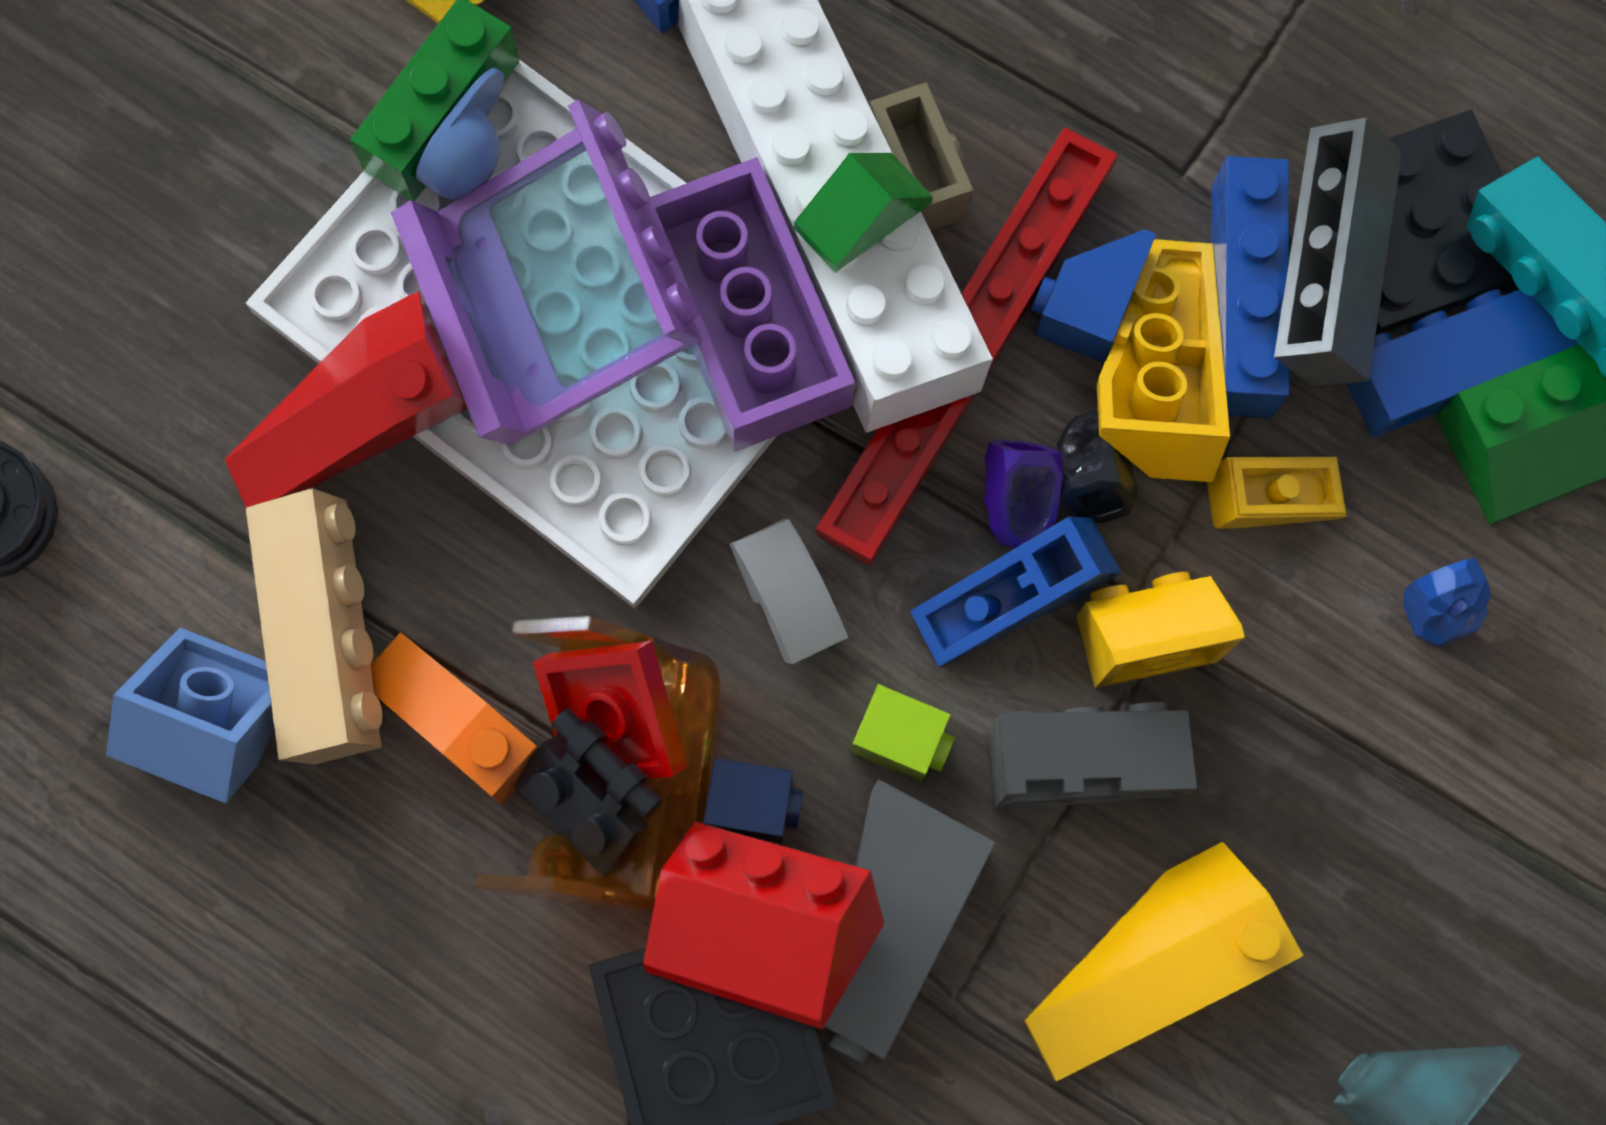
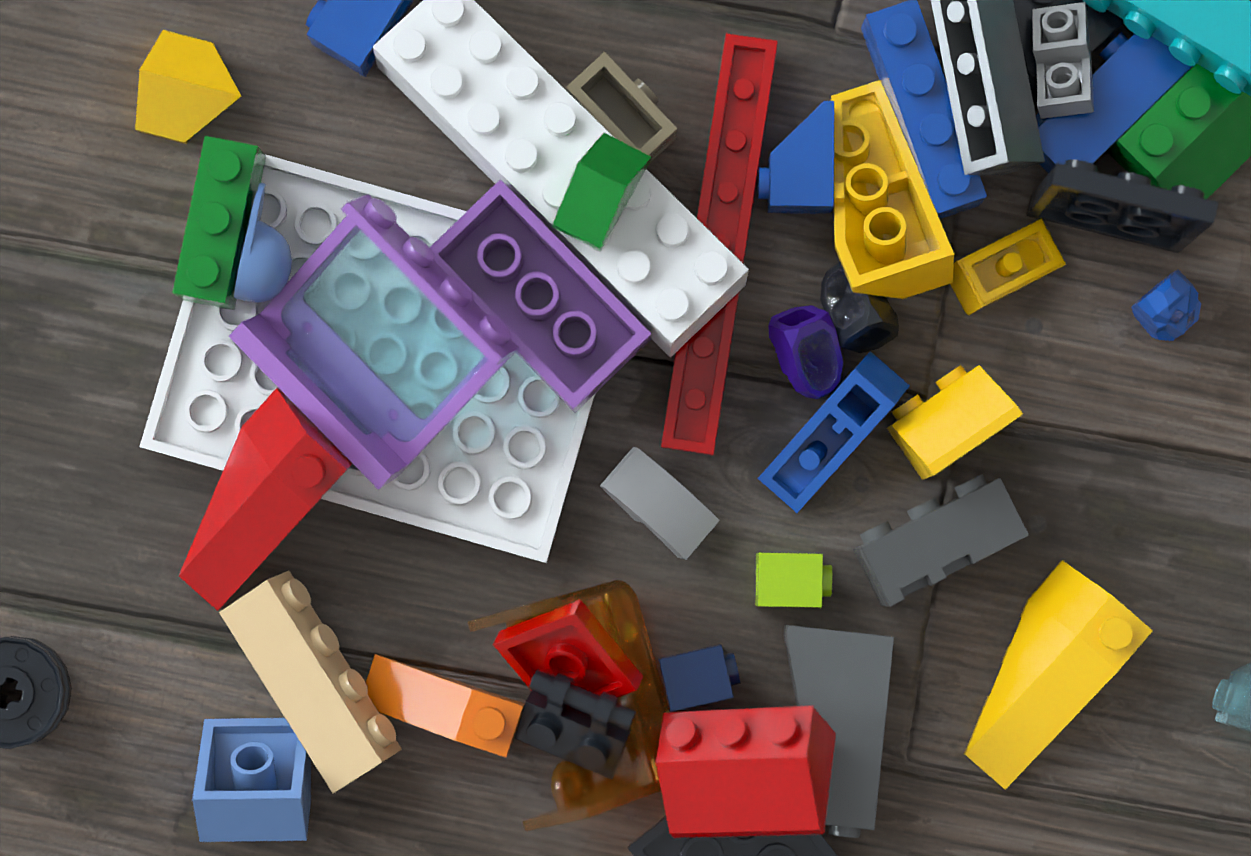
camera: 15 degrees left, 10 degrees up
(1426, 287) = (1063, 60): none -> light grey slope
(1440, 460) = (1122, 206): none -> black plate

